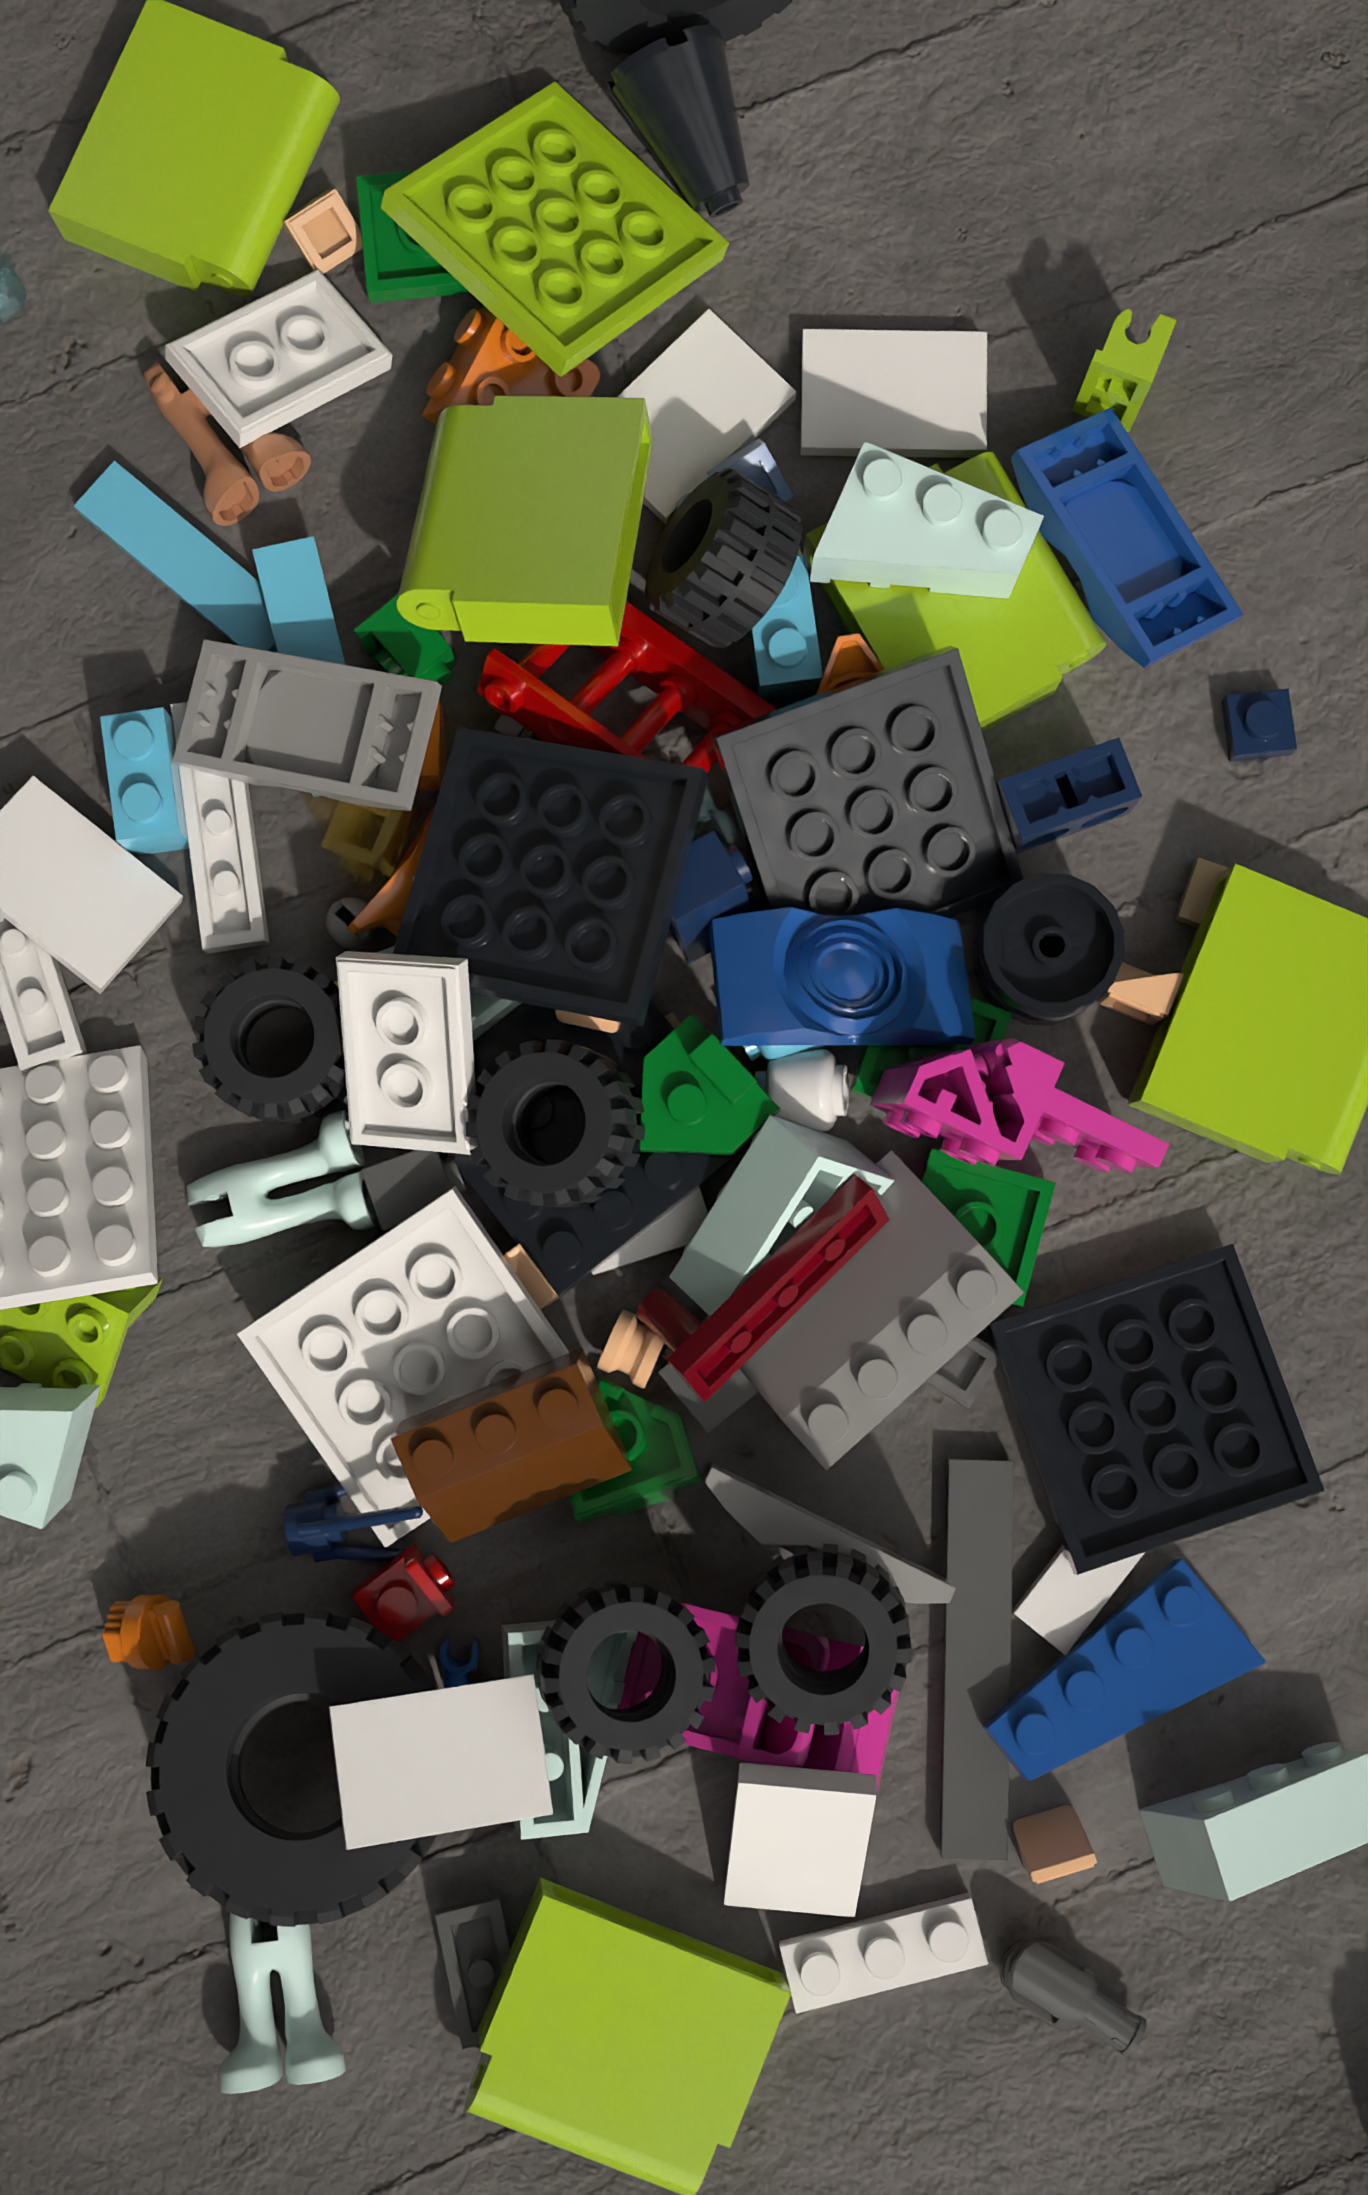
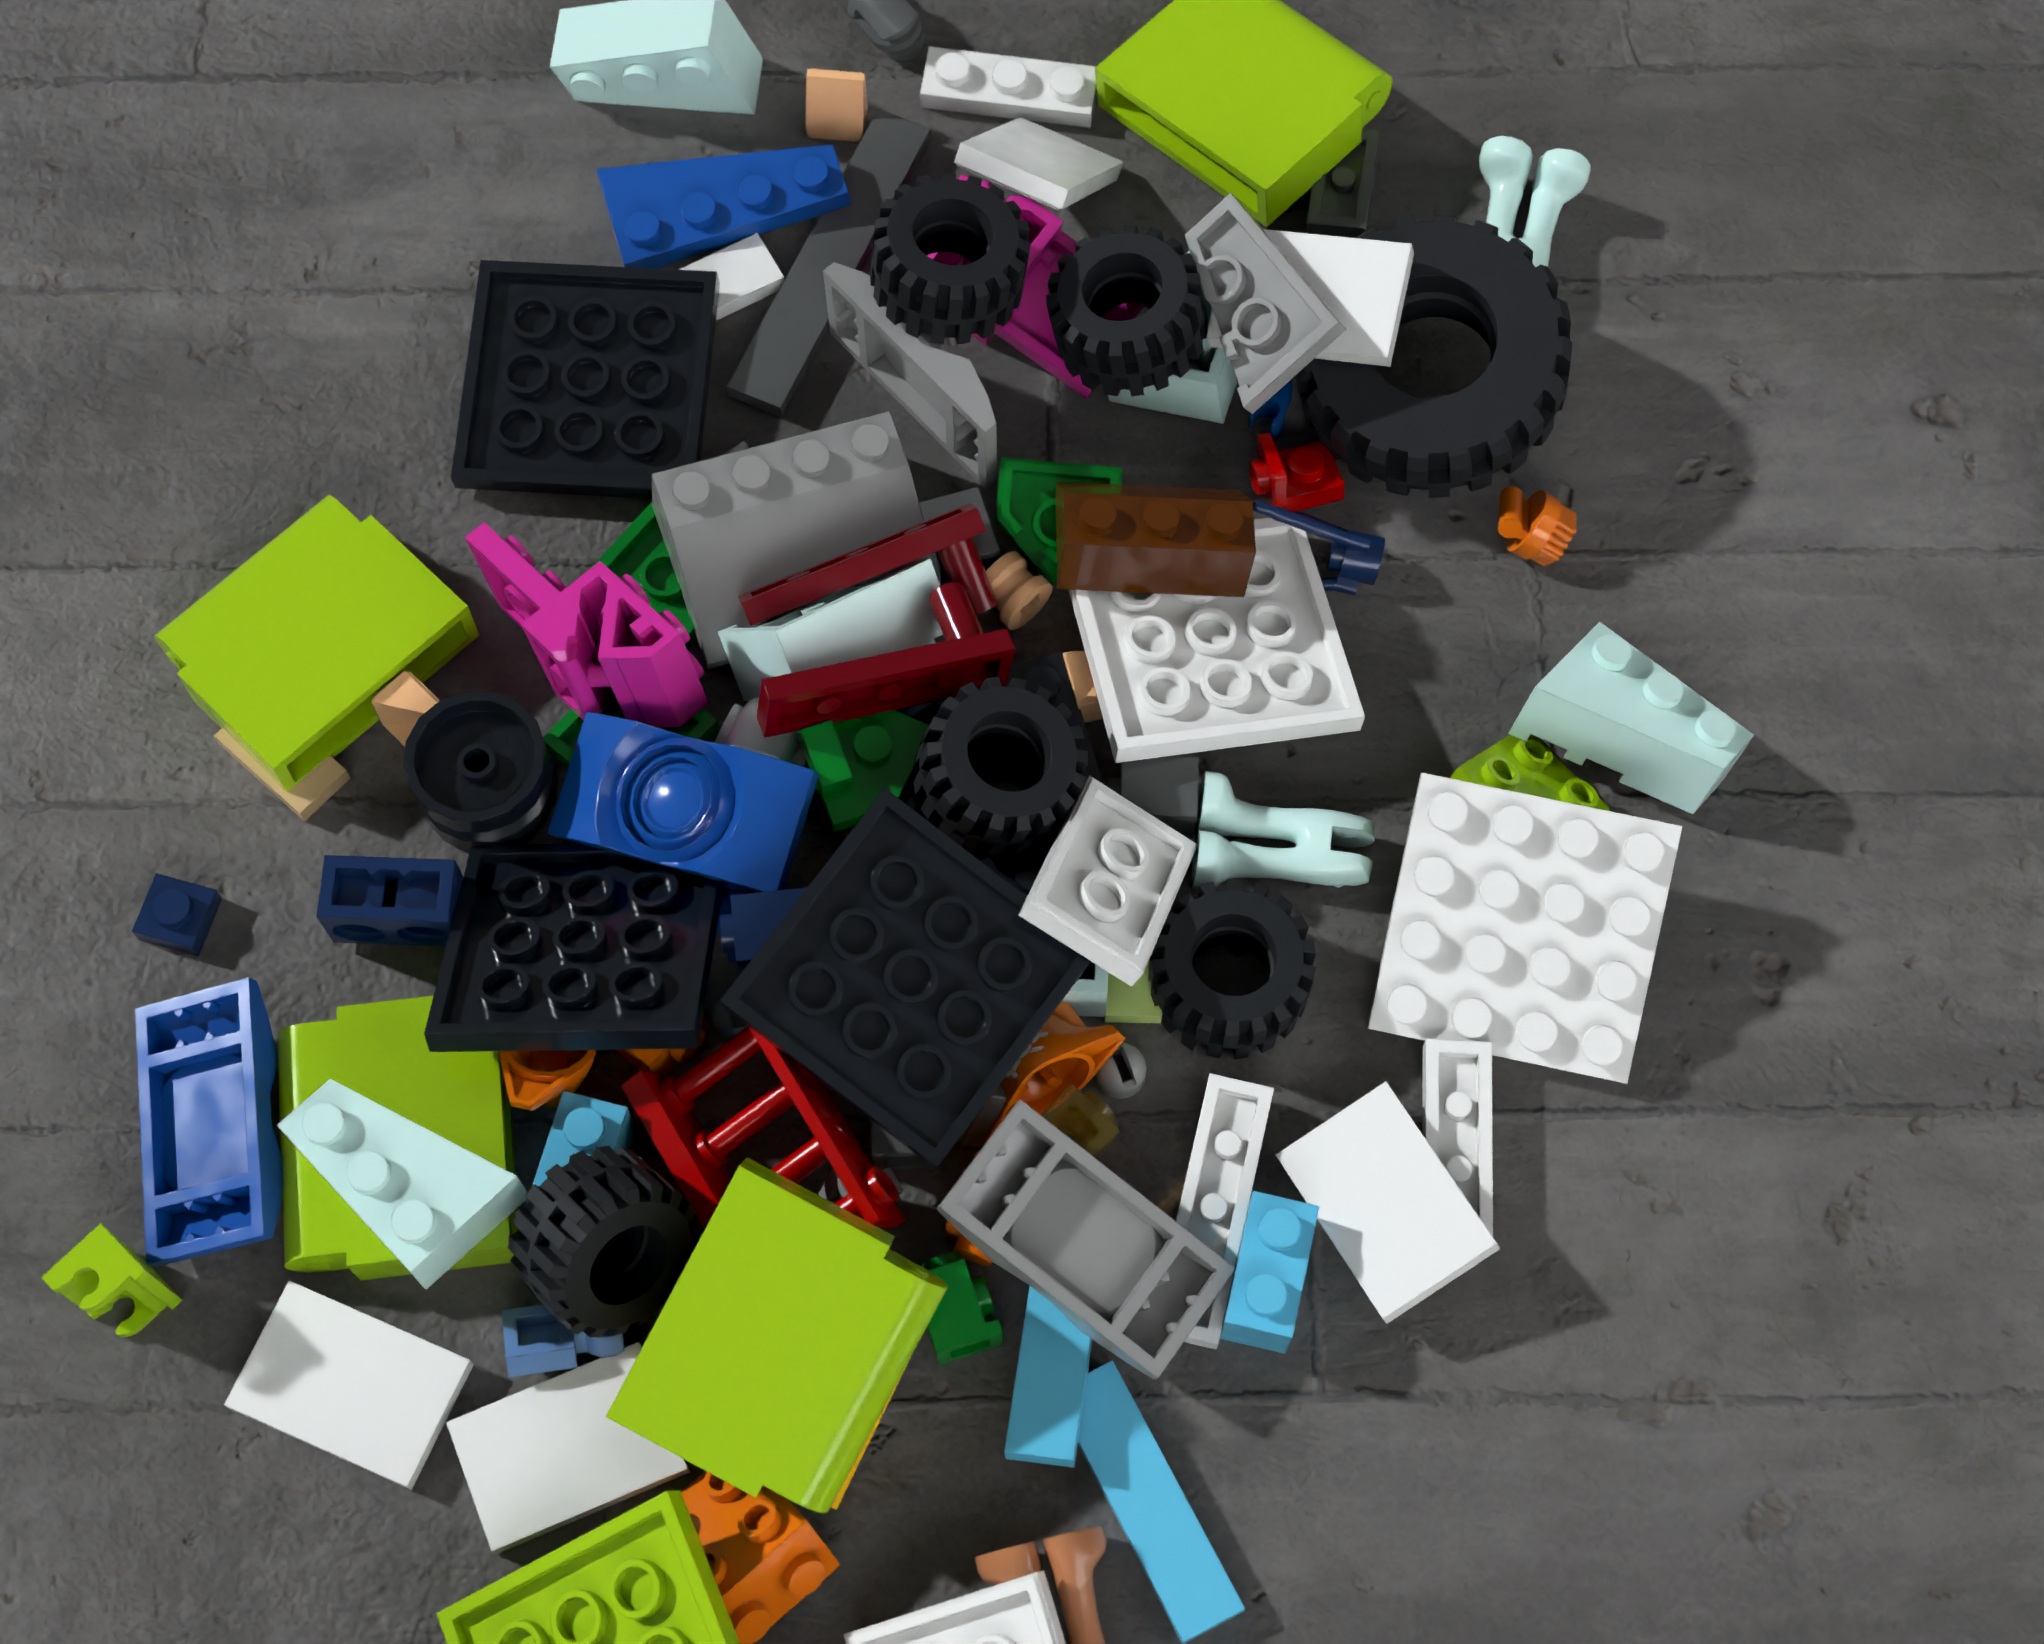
camera: 160 degrees left, 15 degrees down
(486, 1725) = (1261, 302): none -> light grey wing
(629, 1226) = (893, 678): none -> dark red piece

